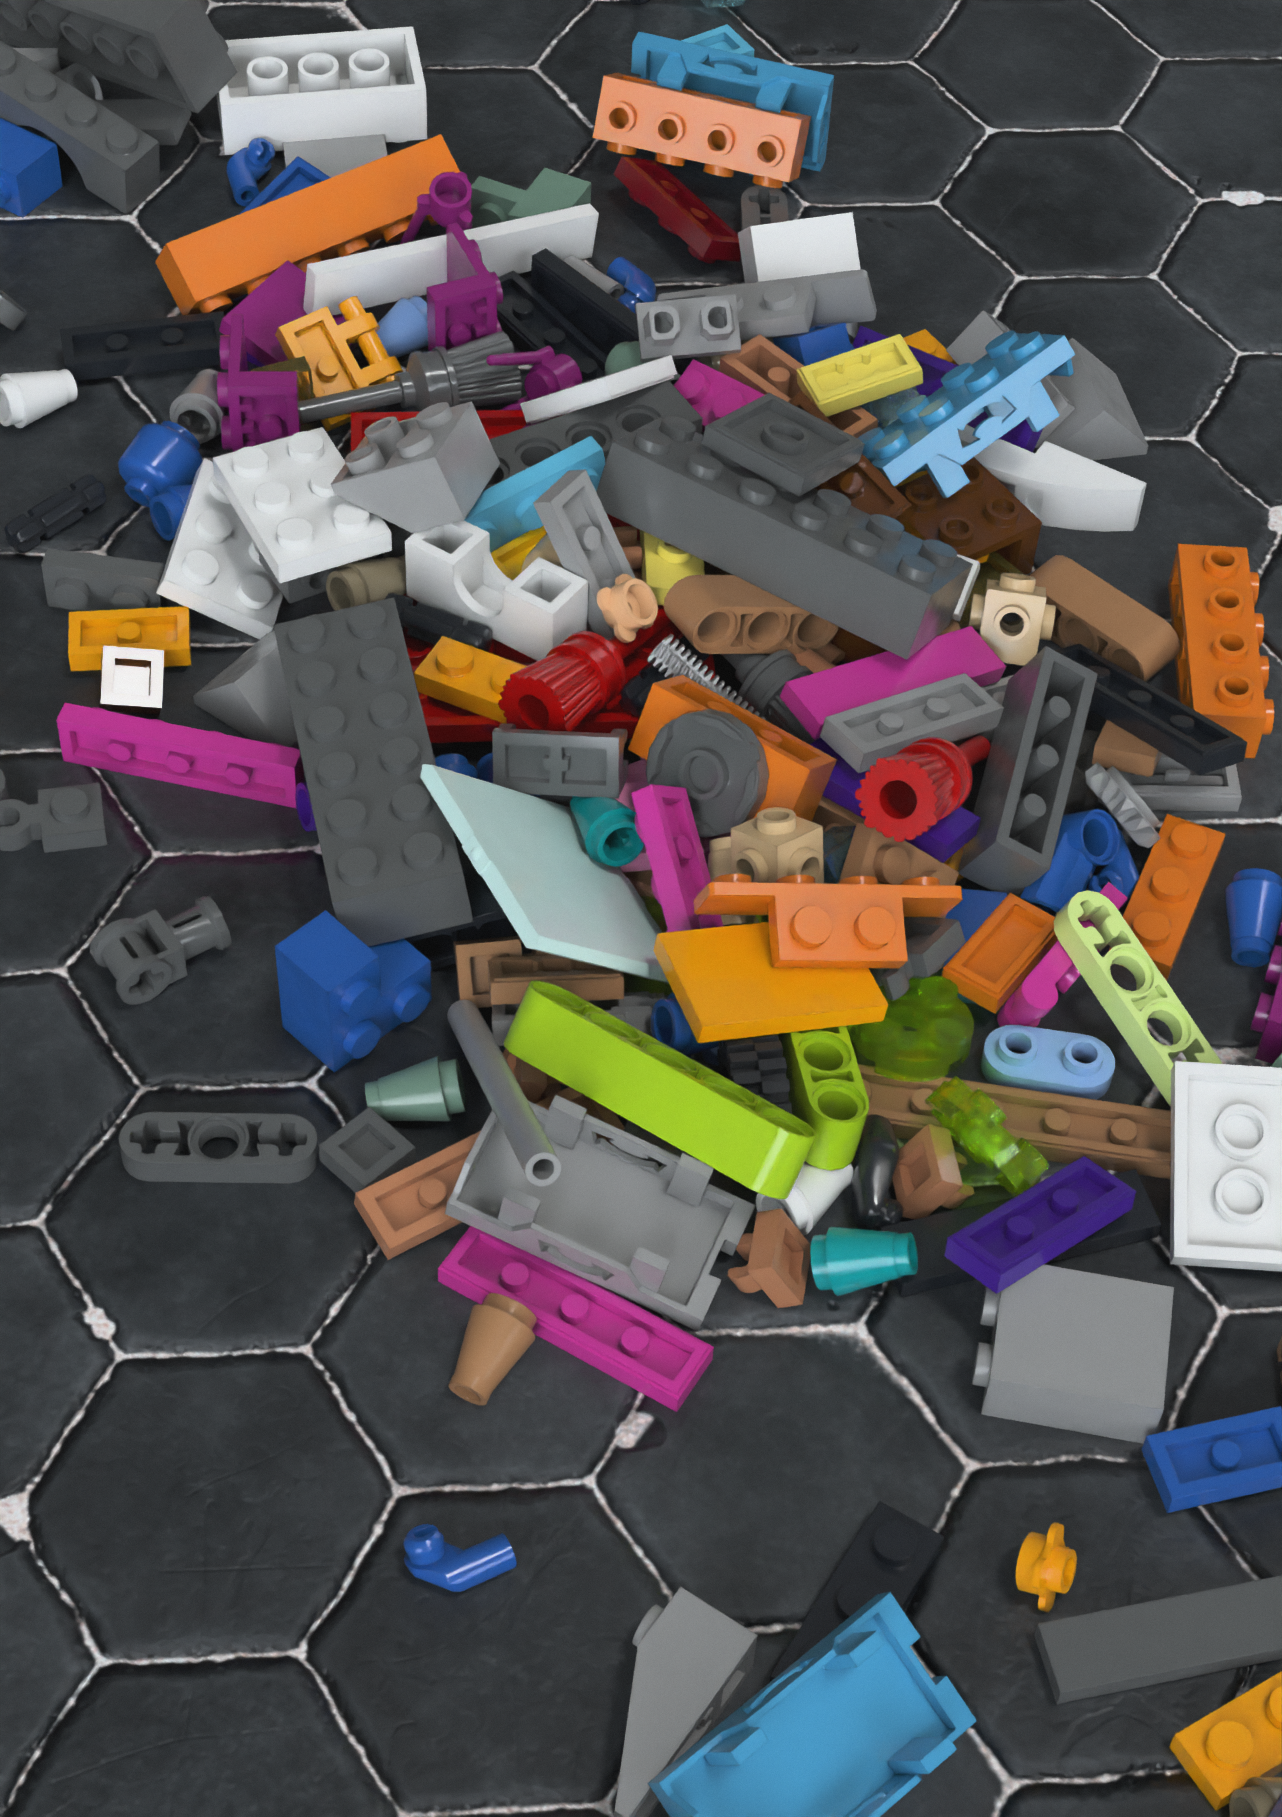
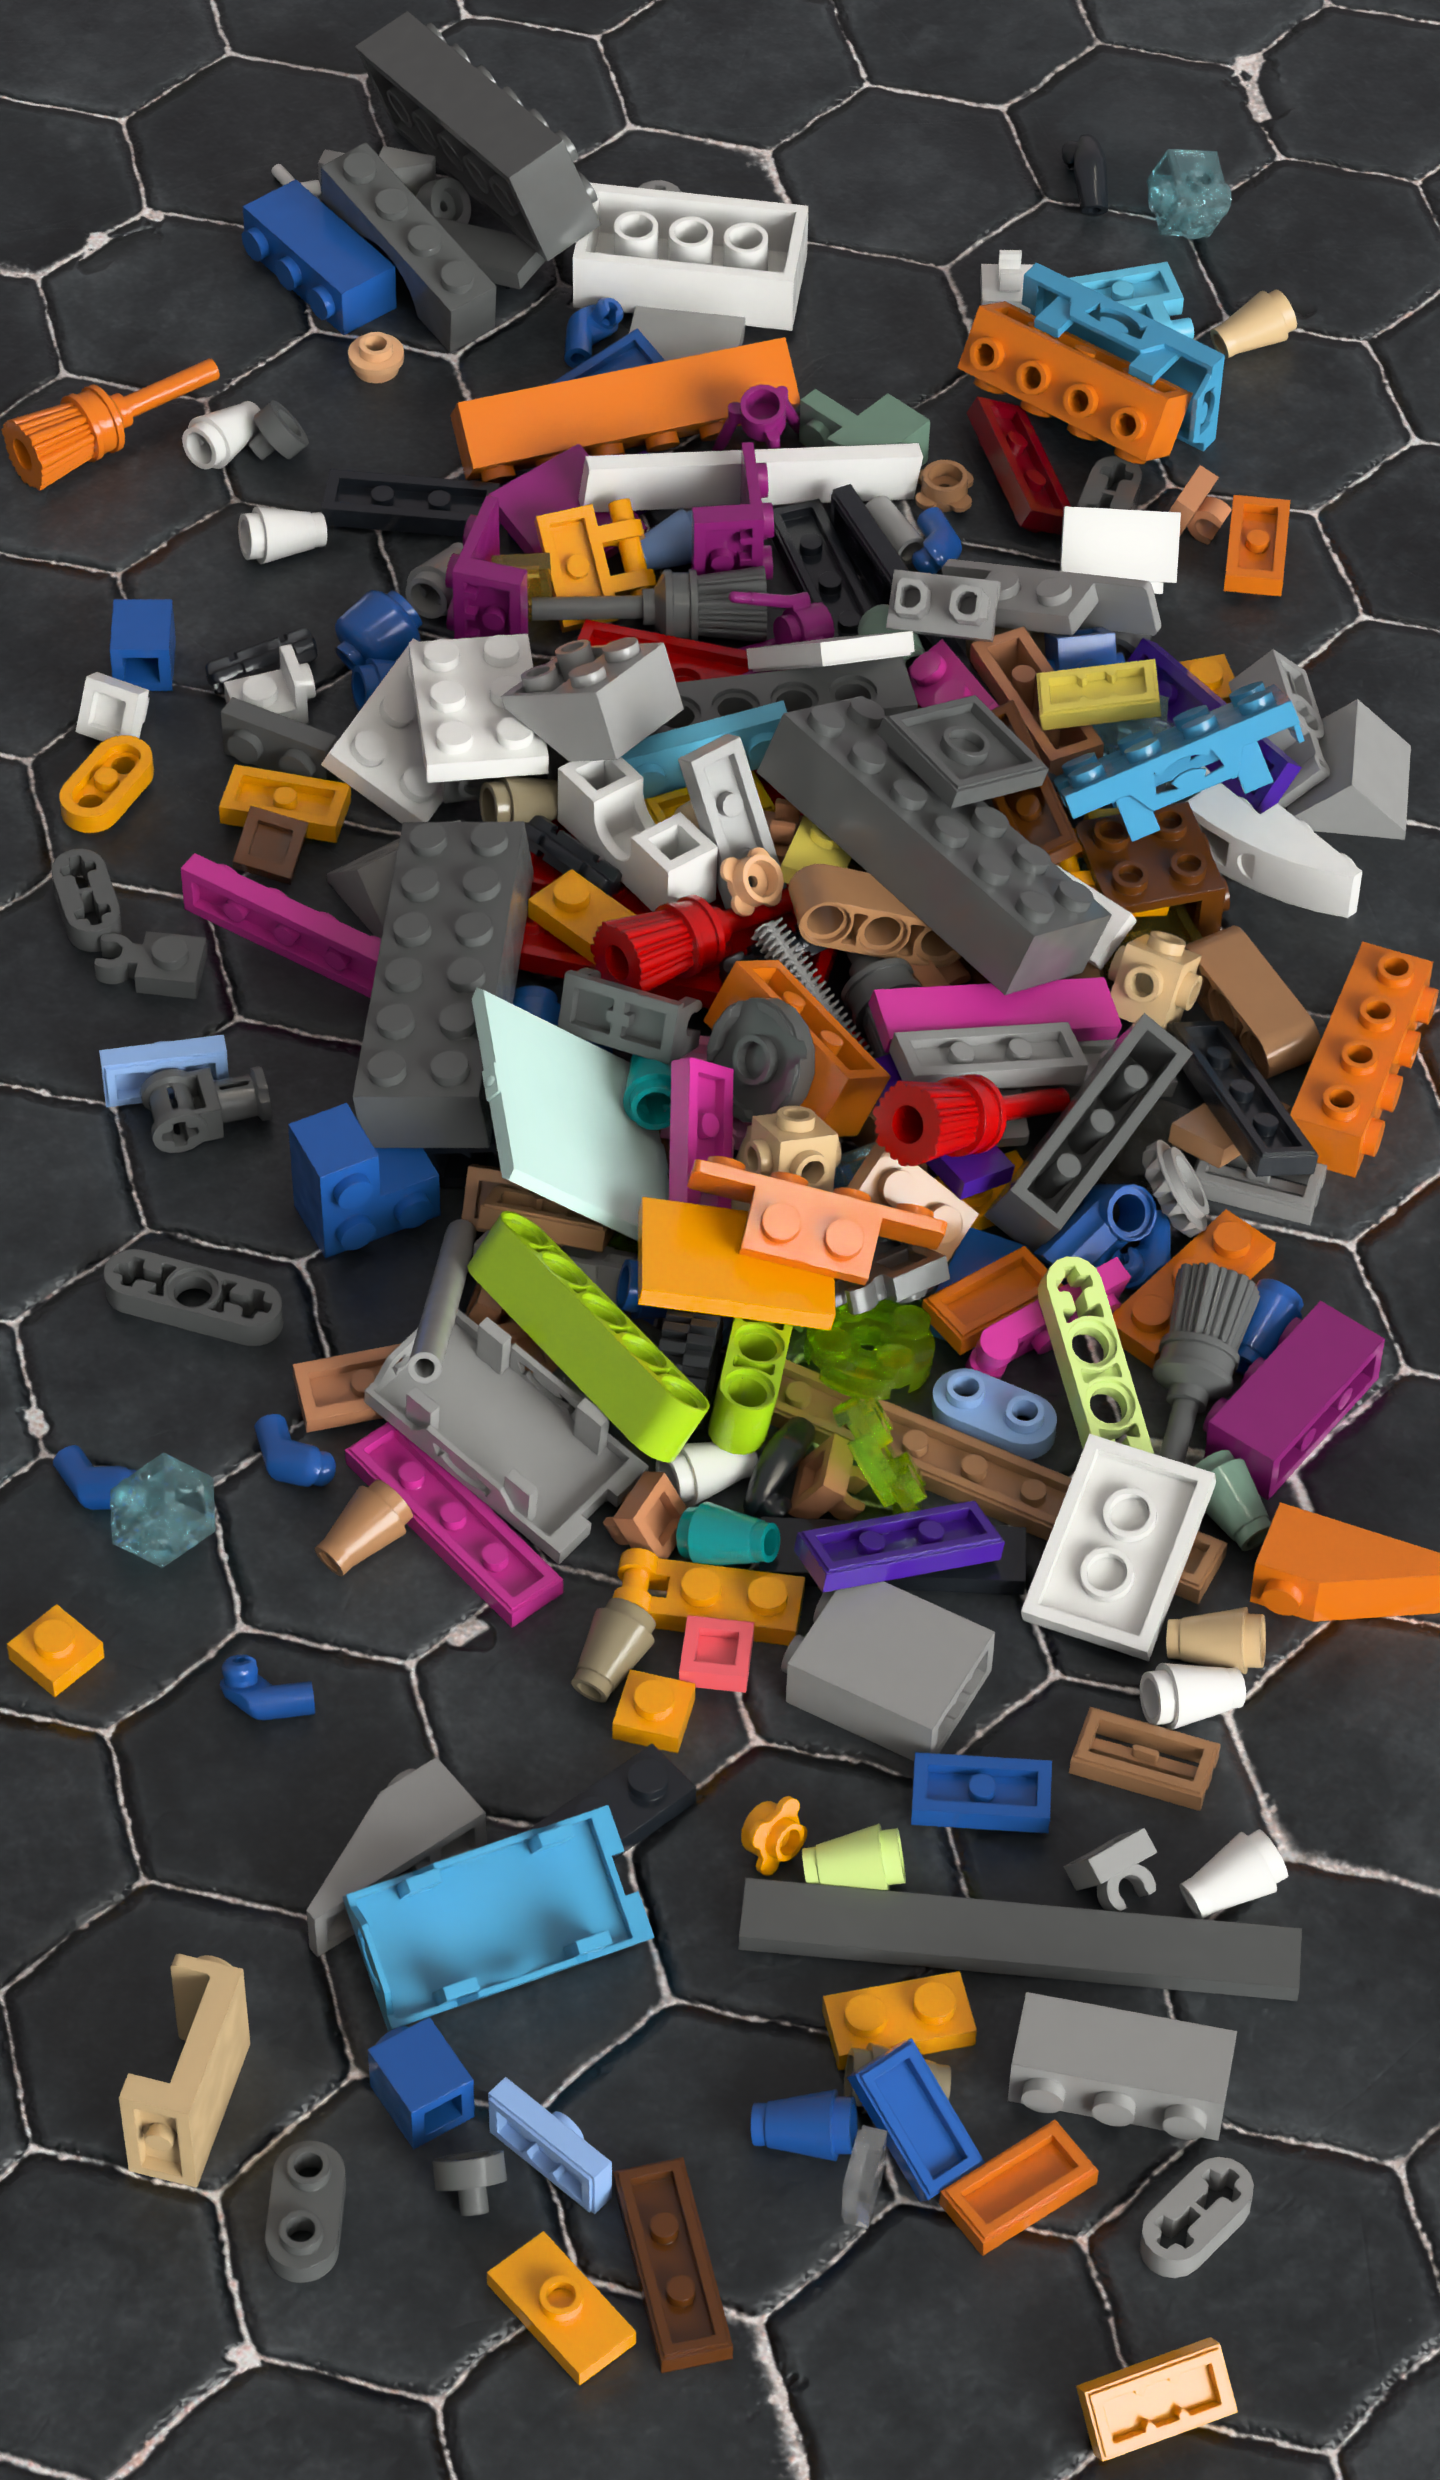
camera: 20 degrees right, 0 degrees up
(62, 228) = (376, 357): none -> light nougat plate
(72, 929) = (128, 1067): none -> light blue plate
(91, 532) = (279, 690): none -> white bracket
(193, 1377) = (88, 1483): none -> blue arm
(213, 1575) = (55, 1650): none -> light orange plate
(280, 1388) = (162, 1510): none -> clear light blue brick
(366, 1151) = (320, 1330): dark grey plate -> none
(384, 1294) = (292, 1460): none -> blue arm
(419, 1093) = (386, 1292): sand green cone -> none
(590, 67) = (1004, 280): none -> white tile
(619, 237) = (944, 486): none -> medium nougat plate
(796, 1408) = (613, 1646): none -> dark tan cone
(828, 52) = (1257, 324): none -> tan cone
(843, 200) = (1198, 512): none -> nougat tile
(861, 1463) = (653, 1711): none -> light orange plate
(863, 1327) = (713, 1592): none -> light orange plate
(901, 1384) = (717, 1653): none -> coral plate
(909, 235) = (1257, 545): none -> orange plate
(1140, 1571) = (857, 1860): none -> yellowish green cone
(1220, 948) = (1202, 1346): none -> dark grey piece

